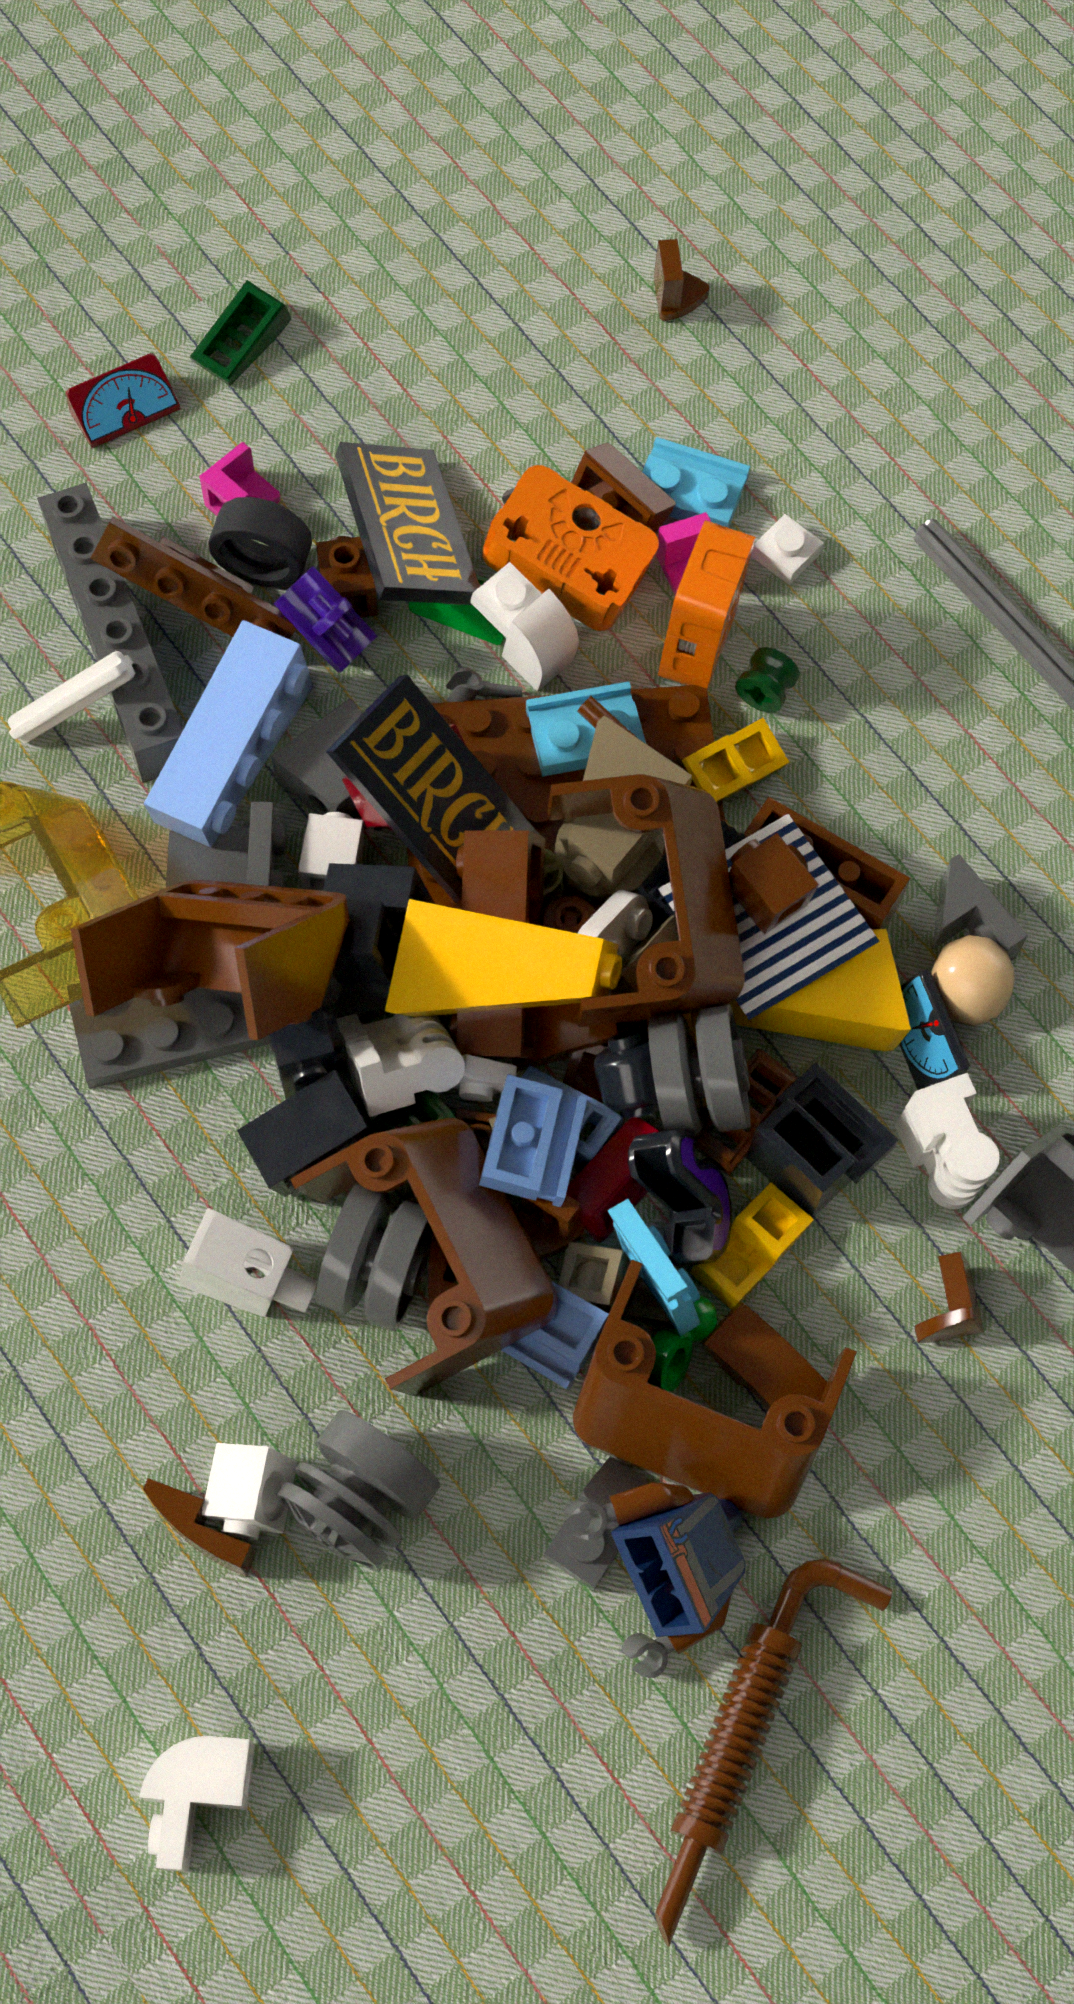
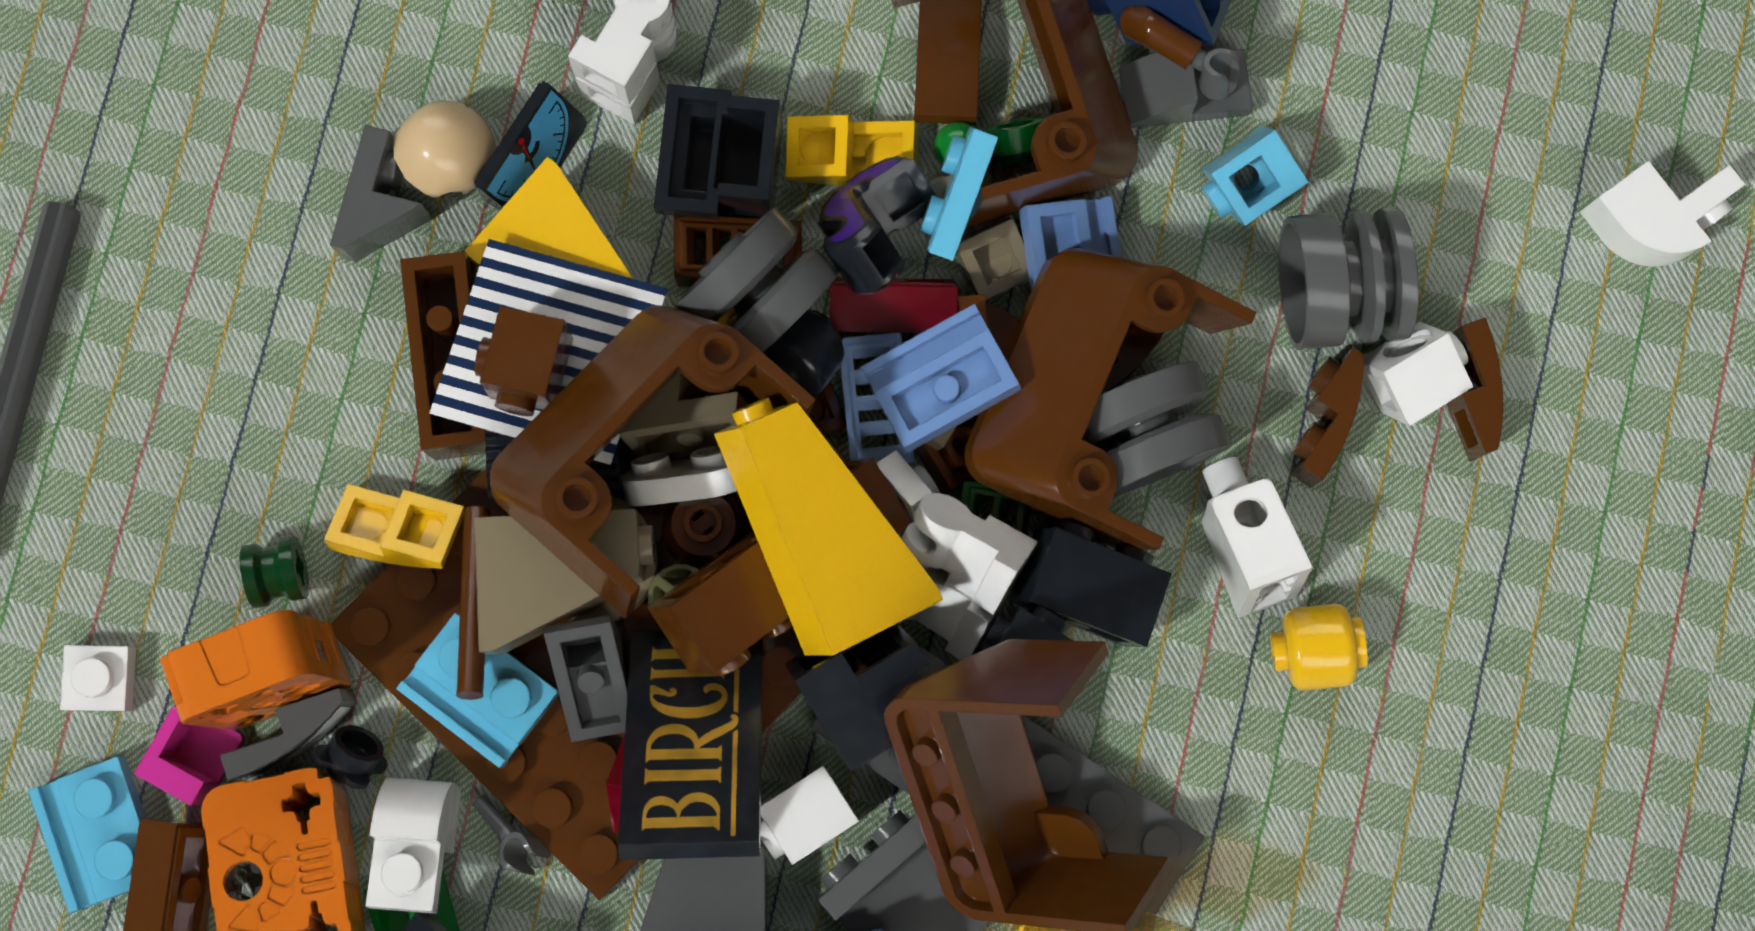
camera: 130 degrees left, 15 degrees up
(131, 1255) = (1320, 647): none -> yellow head
(287, 1424) = (1335, 403): none -> reddish brown slope
(479, 1487) = (1273, 180): none -> medium azure brick
(529, 780) = (589, 676): none -> dark grey slope
(618, 648) = (352, 756): none -> black plate
(655, 614) = (302, 727): none -> dark grey slope

